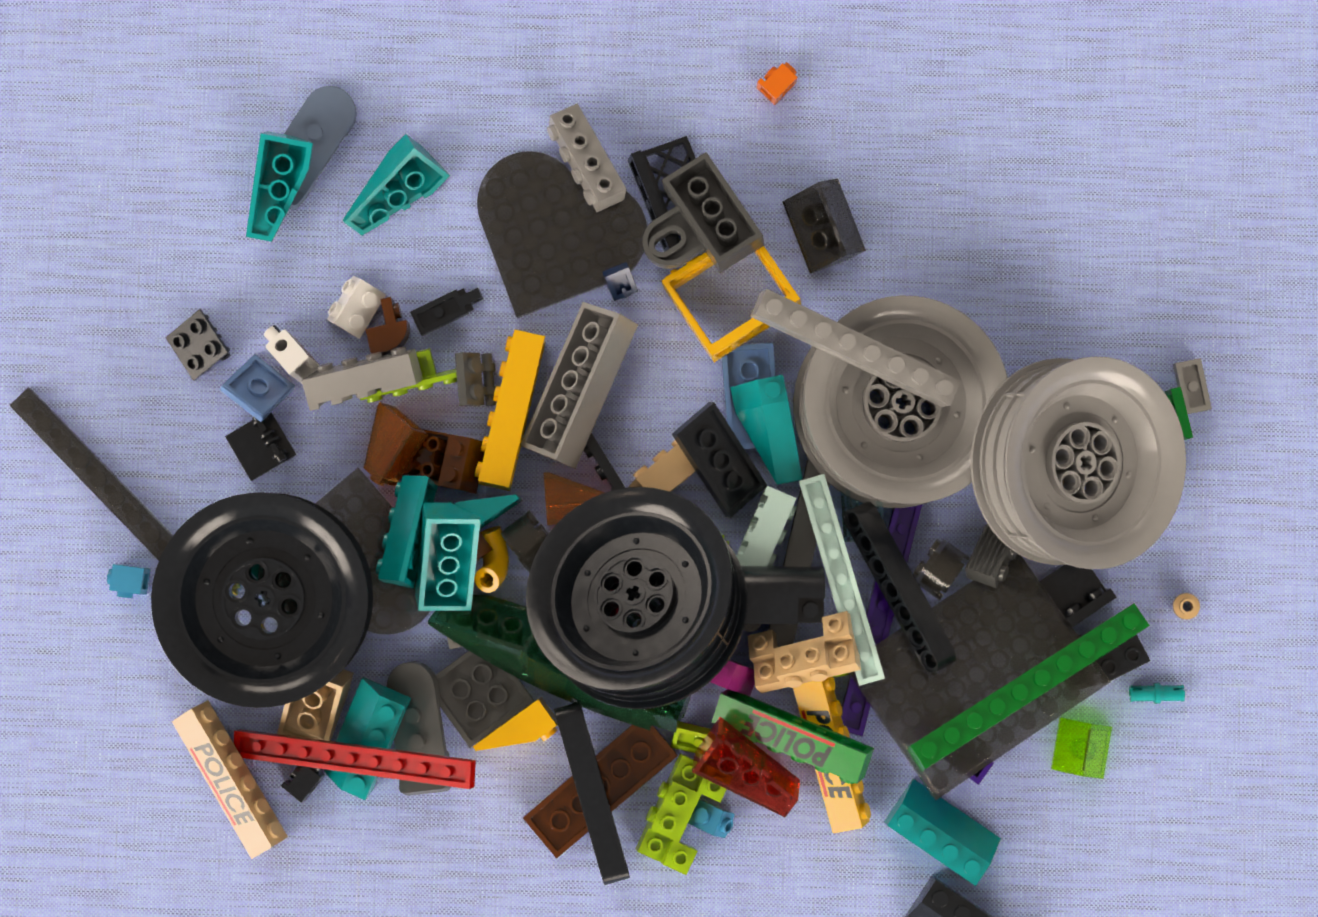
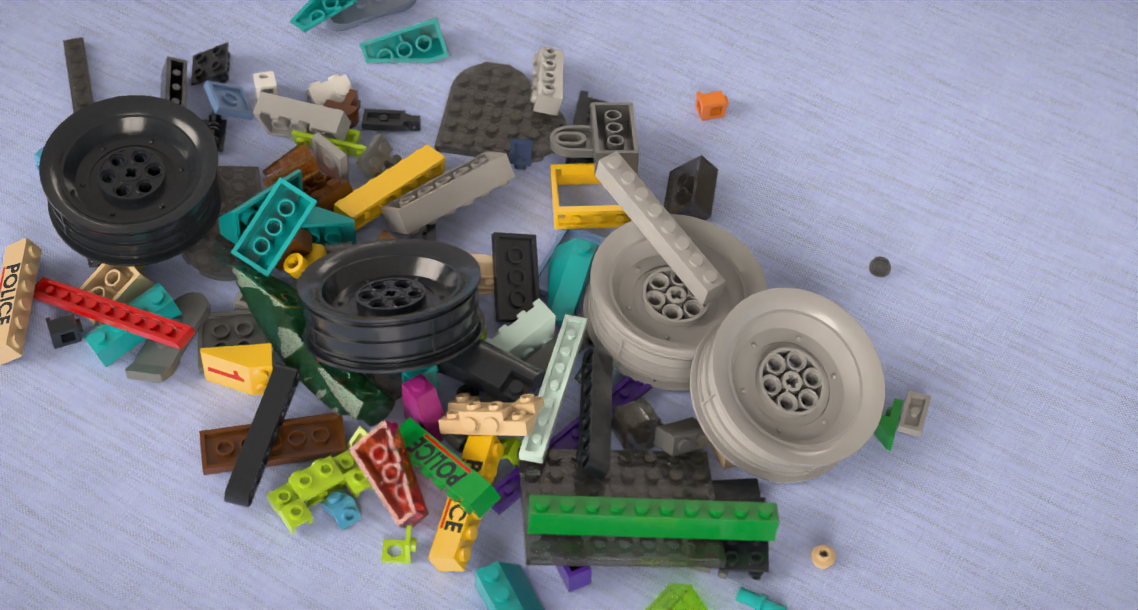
camera: 25 degrees right, 35 degrees down
(193, 418) = (174, 80): none -> black brick
(426, 412) = (329, 157): none -> light grey tile
(801, 824) = (408, 546): none -> lime bracket
(1068, 211) = (880, 267): none -> clear smoke plate

